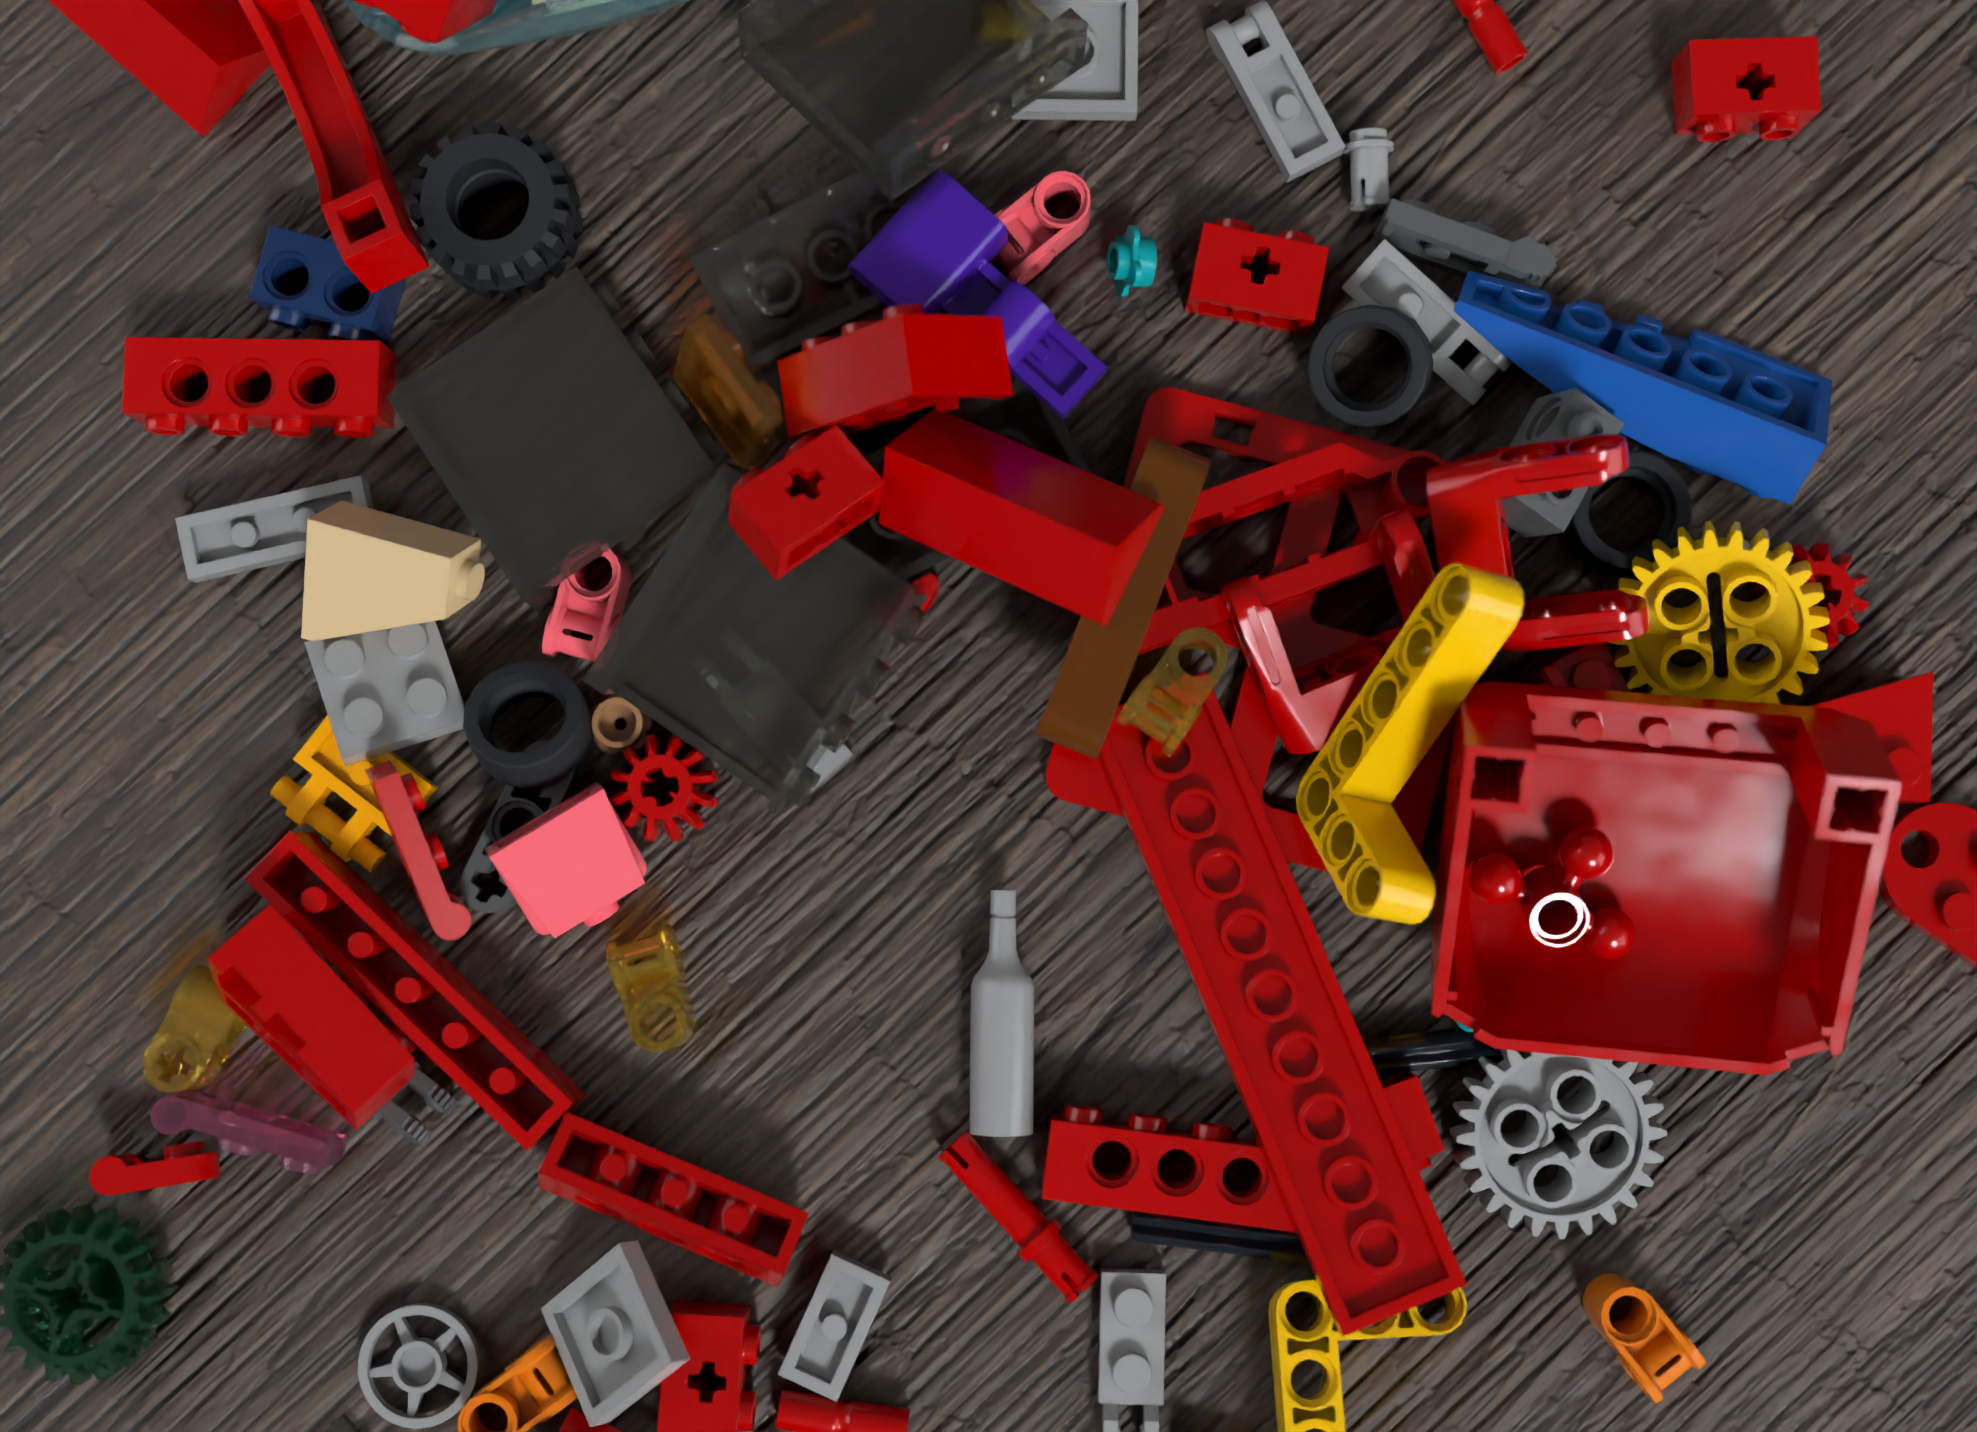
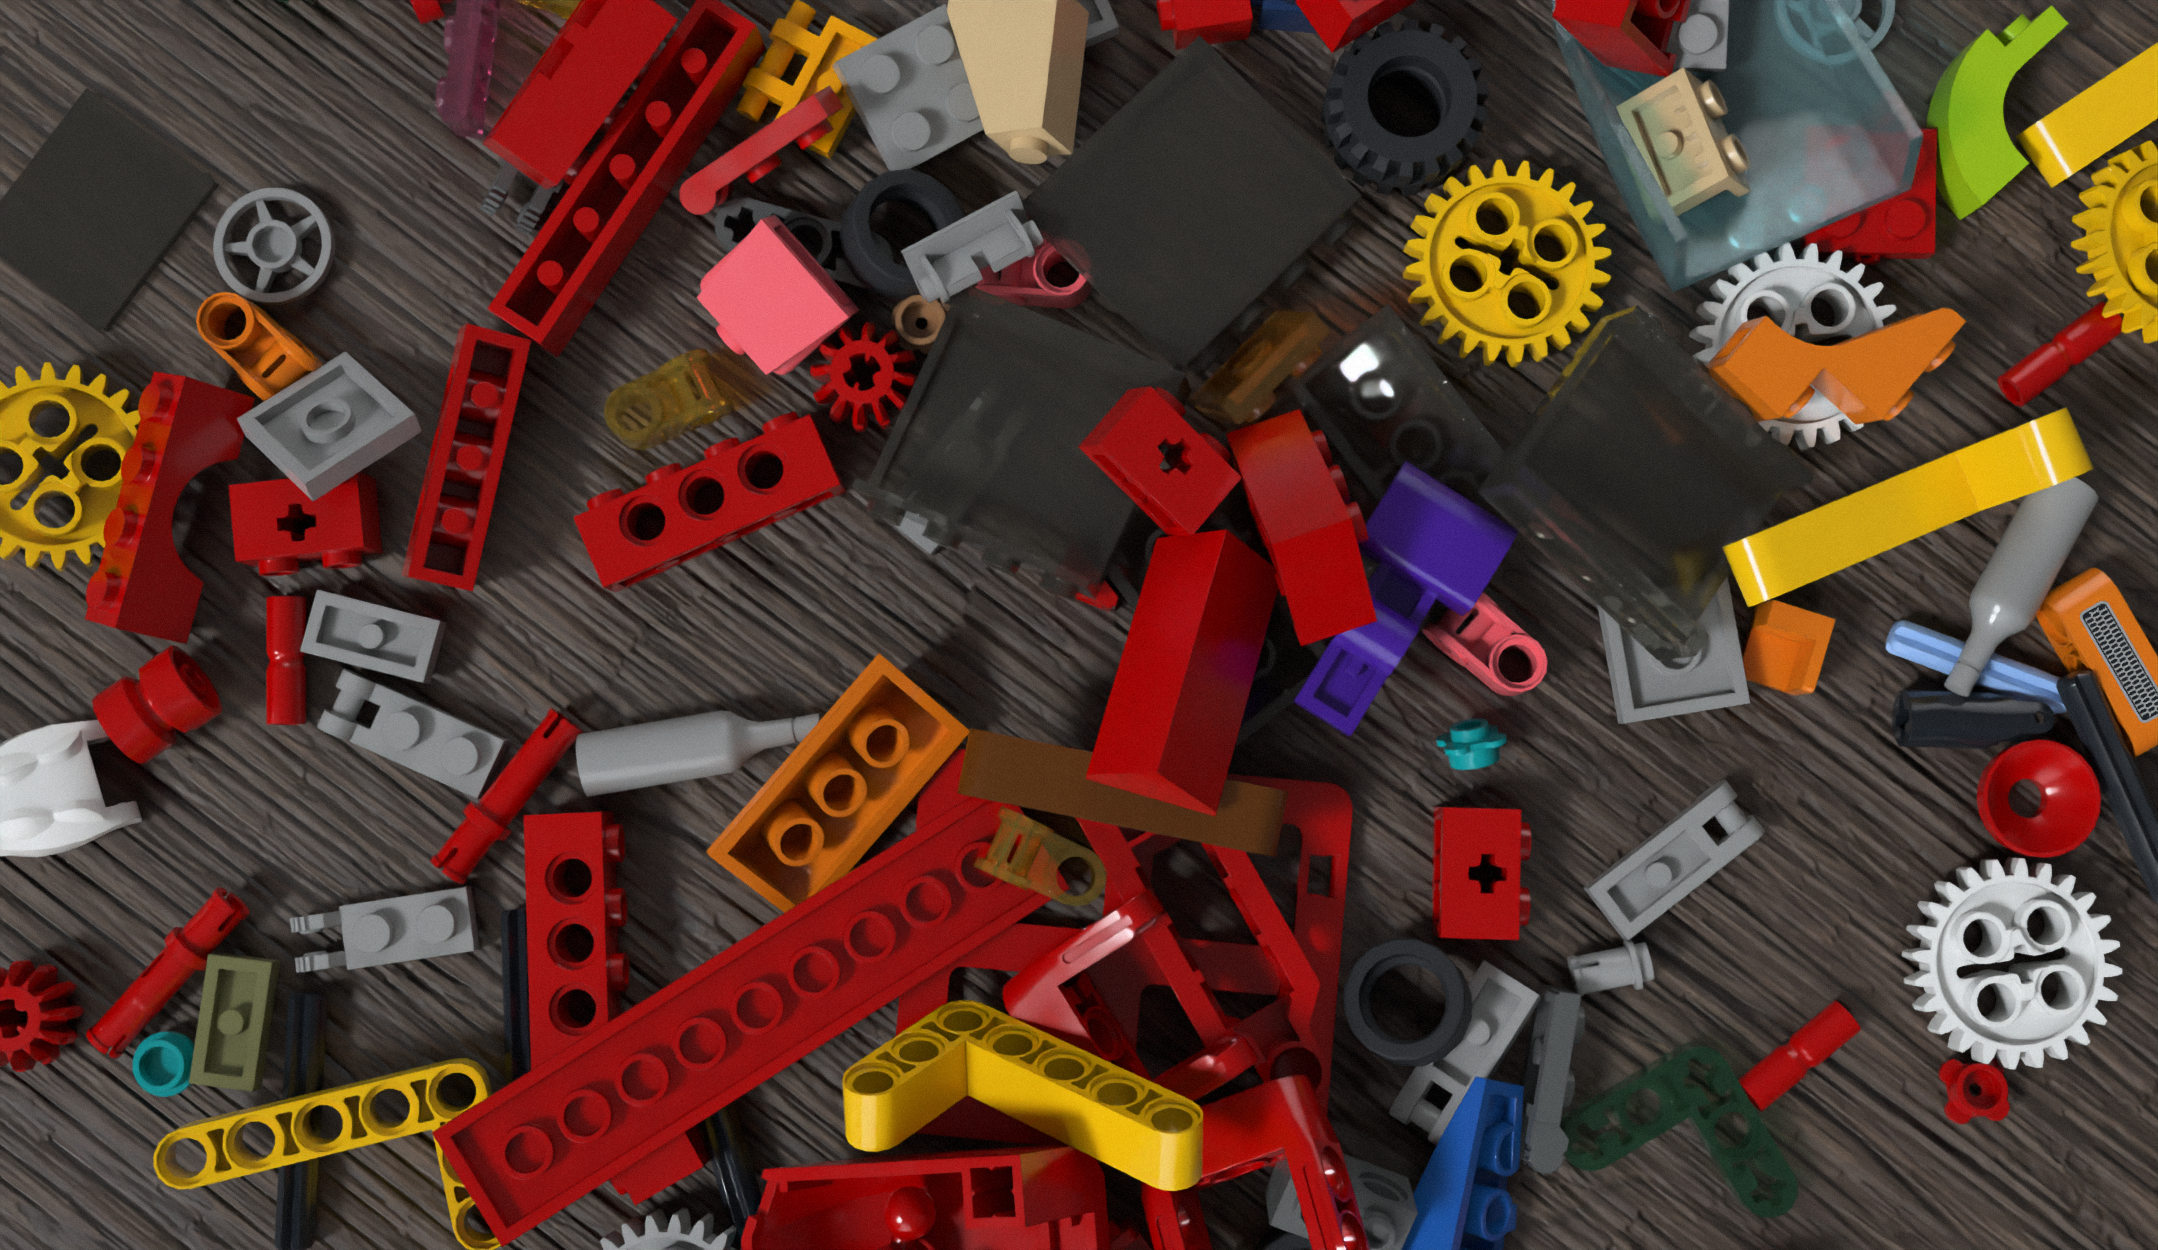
camera: 75 degrees right, 0 degrees up
(562, 672) = (956, 254): none -> light grey hinge
(622, 114) = (1528, 212): none -> yellow gear
(758, 1064) = (612, 517): none -> red brick
(940, 1299) = (415, 735): none -> light grey plate
(1068, 879) = (839, 787): none -> orange slope
(1508, 131) = (1677, 1104): none -> clear green beam

